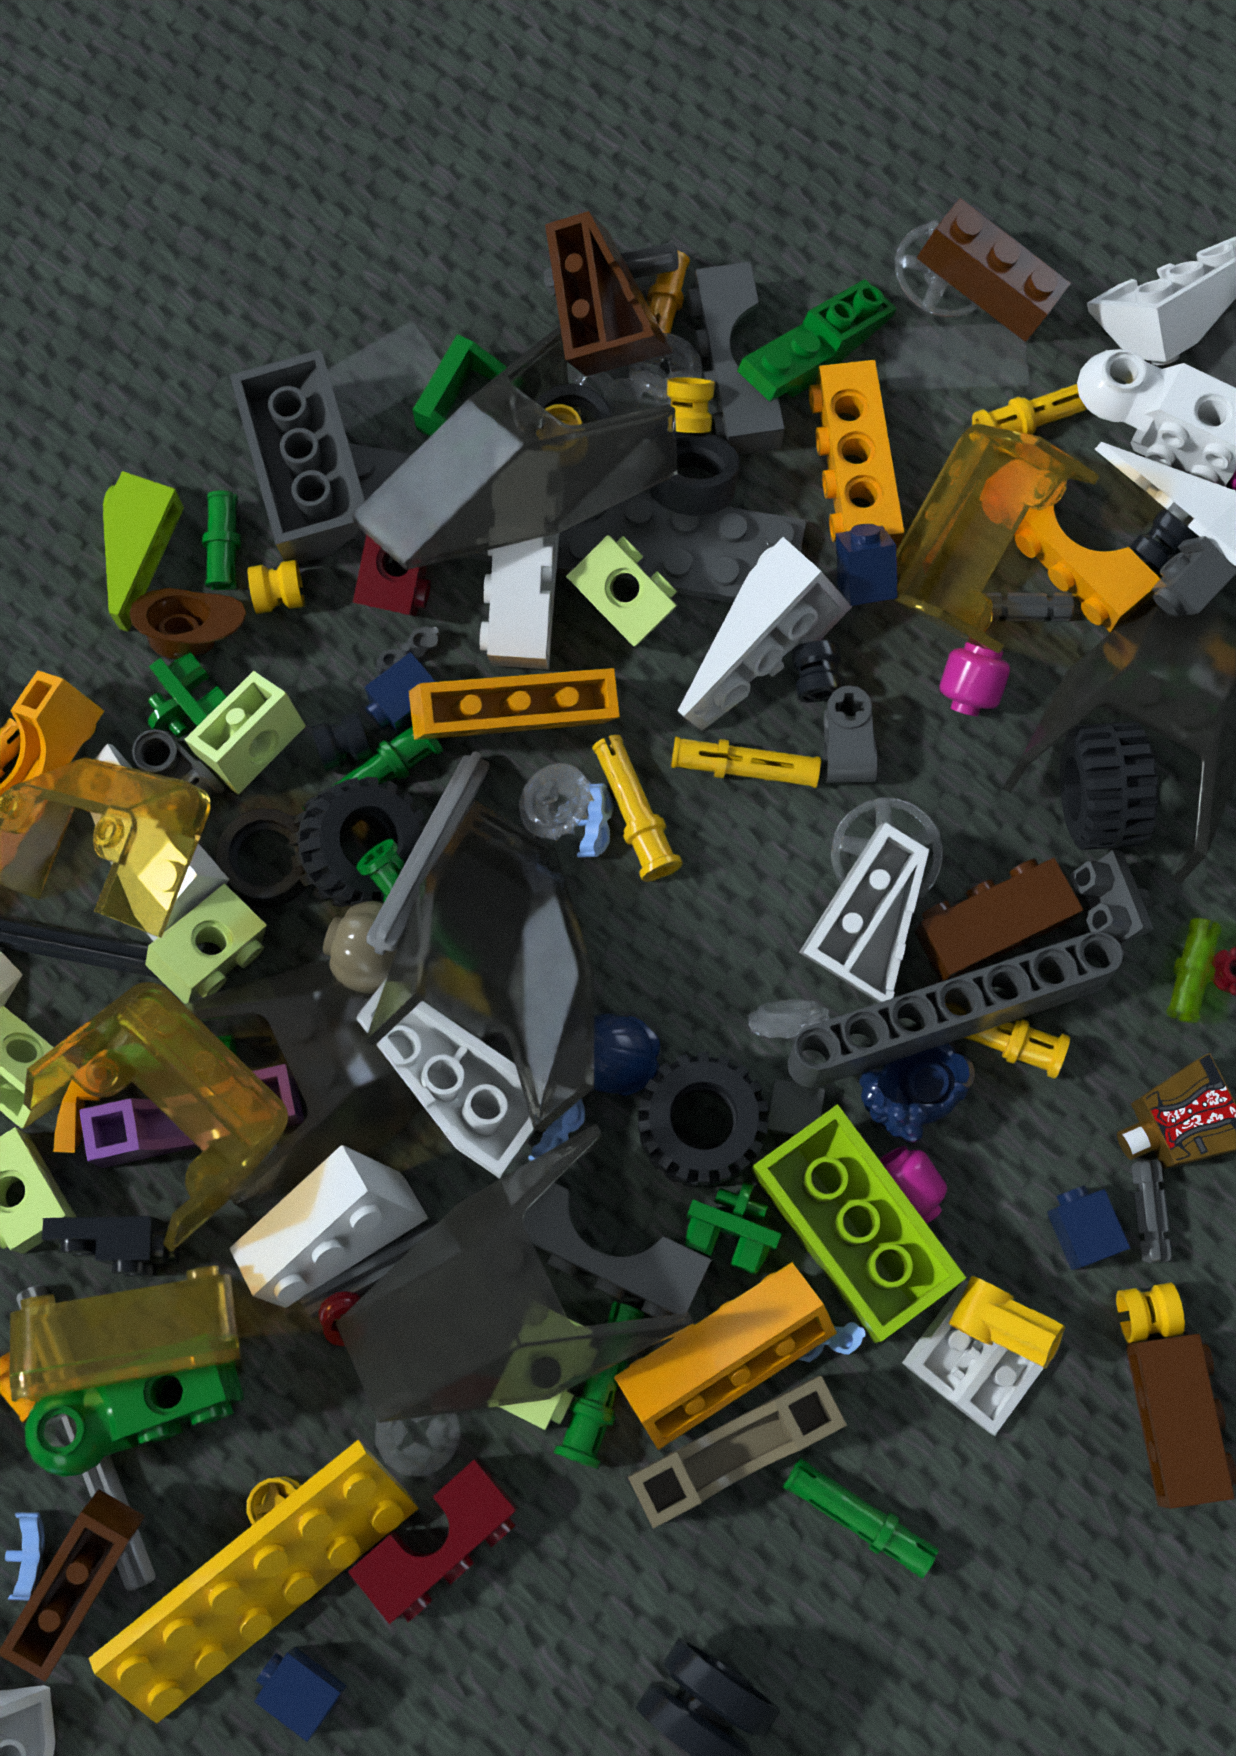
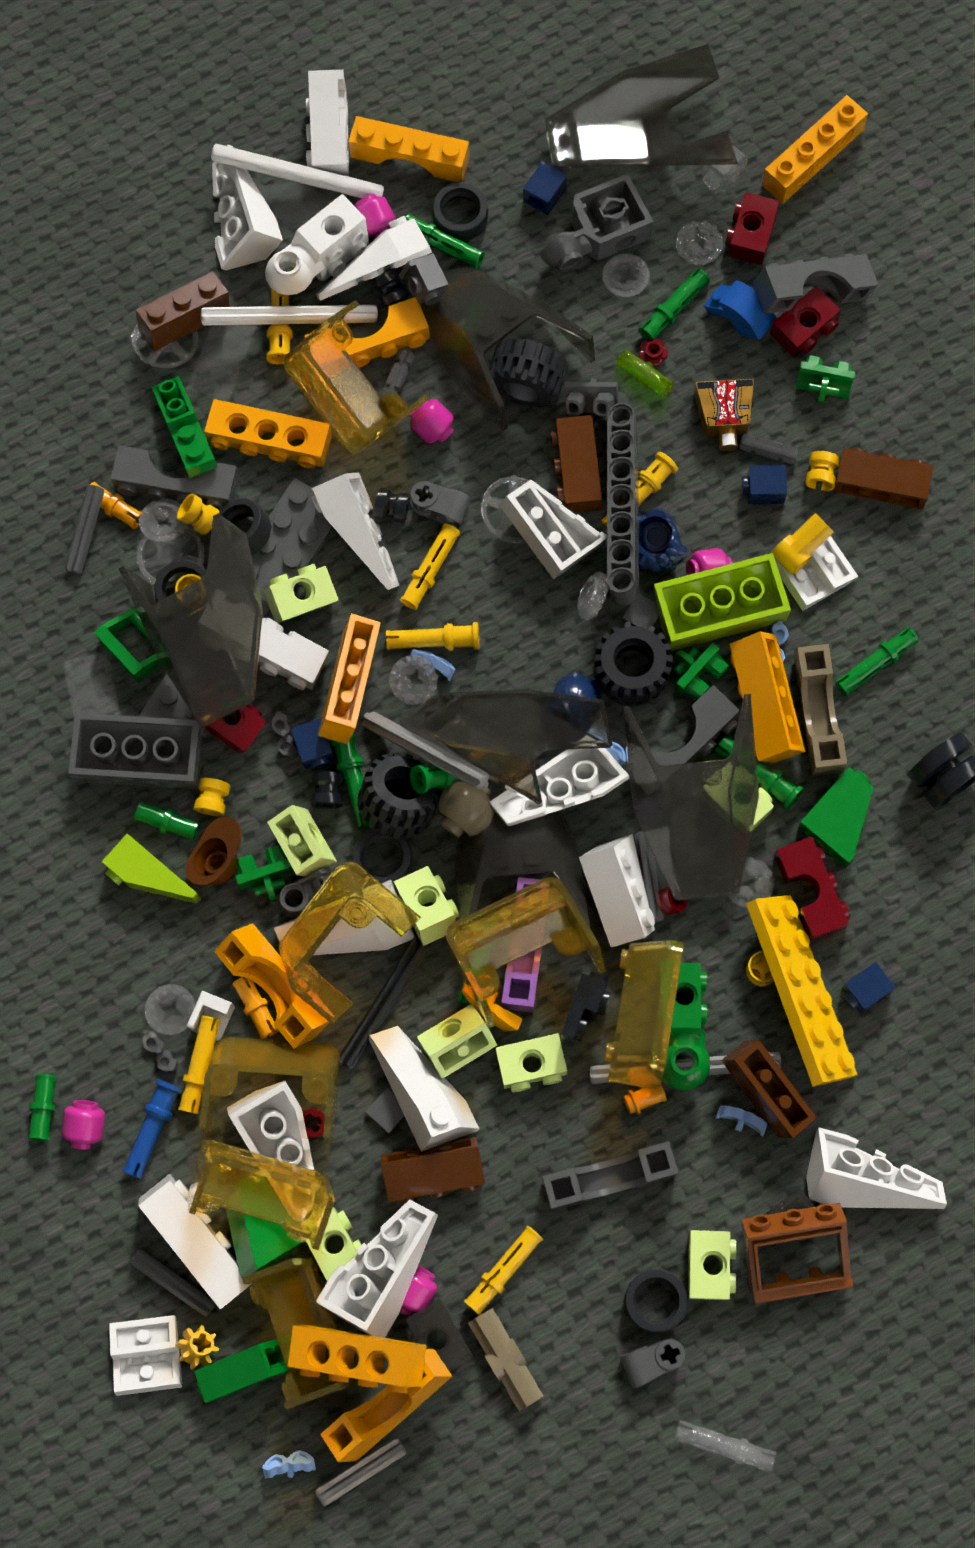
camera: 65 degrees left, 0 degrees up
(573, 1547) = (840, 816): none -> green slope
(598, 300) = (112, 538): reddish brown wedge -> none
(866, 564) = (342, 451): dark blue brick -> none
(1050, 410) = (284, 315): none -> white axle

